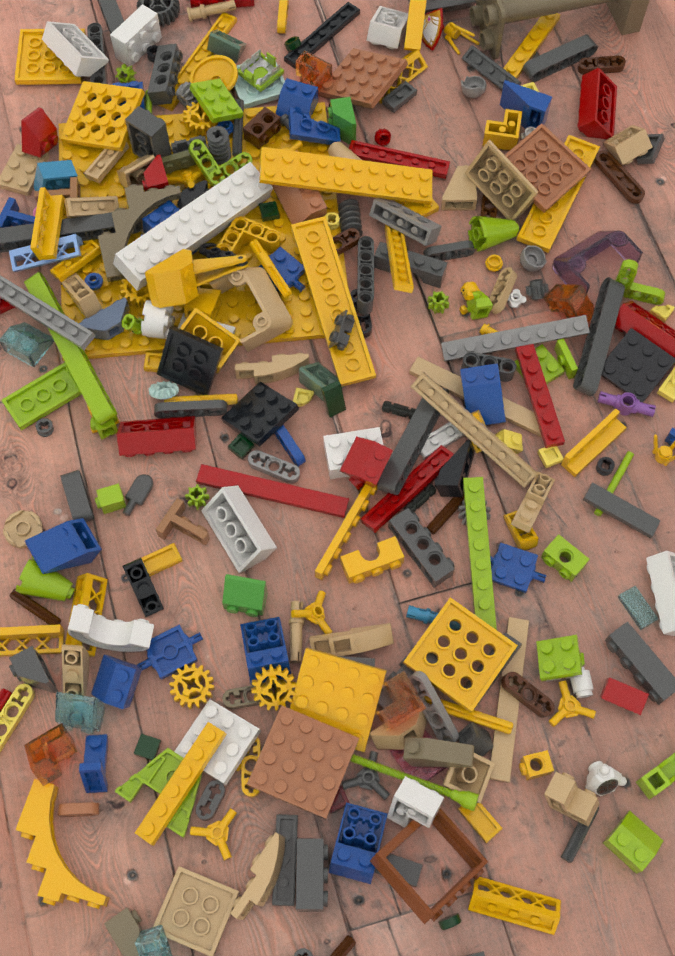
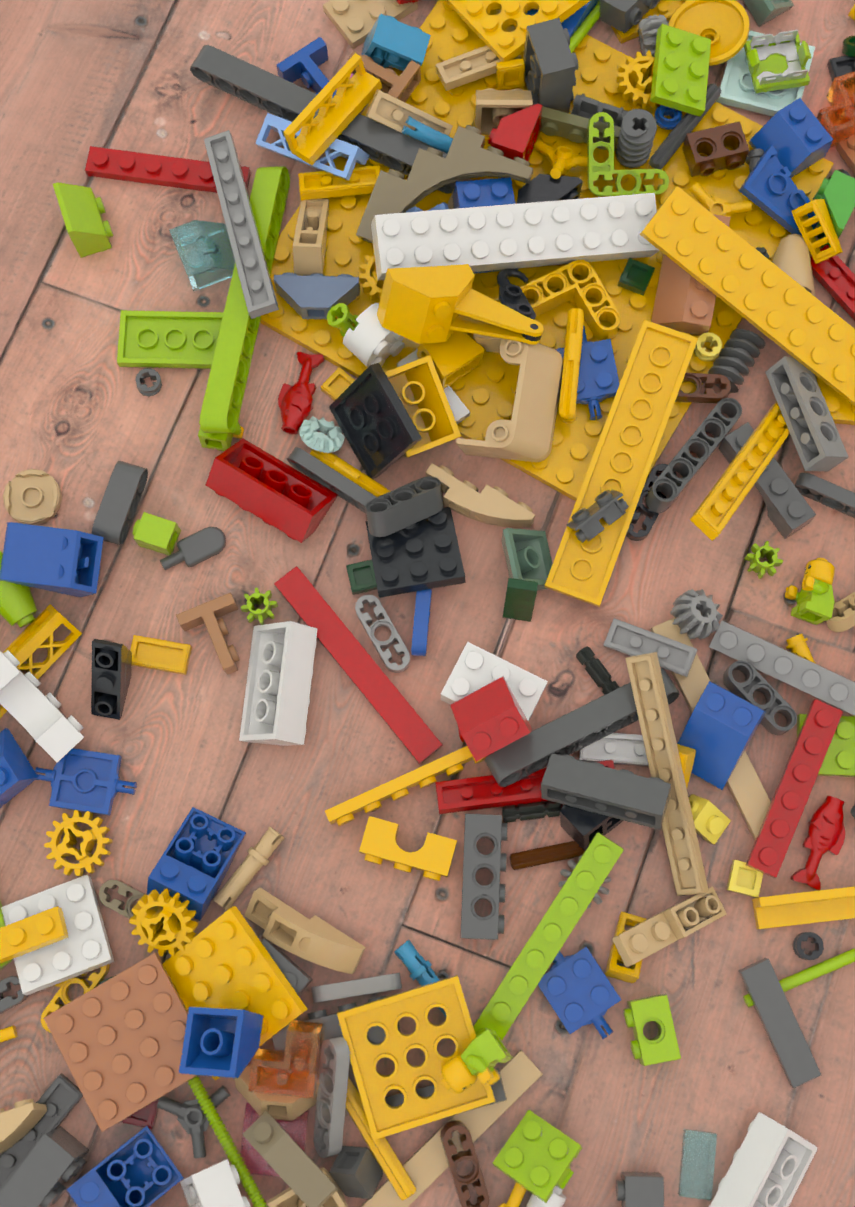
camera: 40 degrees right, 10 degrees up
(95, 285) = (341, 233): blue plate -> none
(108, 207) = (427, 135): none -> dark azure pin
(127, 154) = (510, 74): none -> yellow tile
(135, 383) = (297, 400): none -> red animal
(237, 393) = (404, 506): none -> dark grey beam
(244, 595) = (218, 779): bright green slope -> none
(302, 396) = (487, 565): light yellow tile -> none
(314, 613) = (287, 862): yellow piece -> none
(341, 124) = (823, 217): none -> yellow slope
(353, 715) = (219, 1041): none -> blue slope
(401, 383) = (638, 641): none -> light grey tile
(401, 648) = (356, 987): none -> light grey beam
(426, 348) = (696, 614): none -> light grey gear
(451, 456) = (606, 790): none -> dark grey brick
(493, 627) = (475, 1062): none -> piece
(571, 410) = (824, 834): none -> red animal

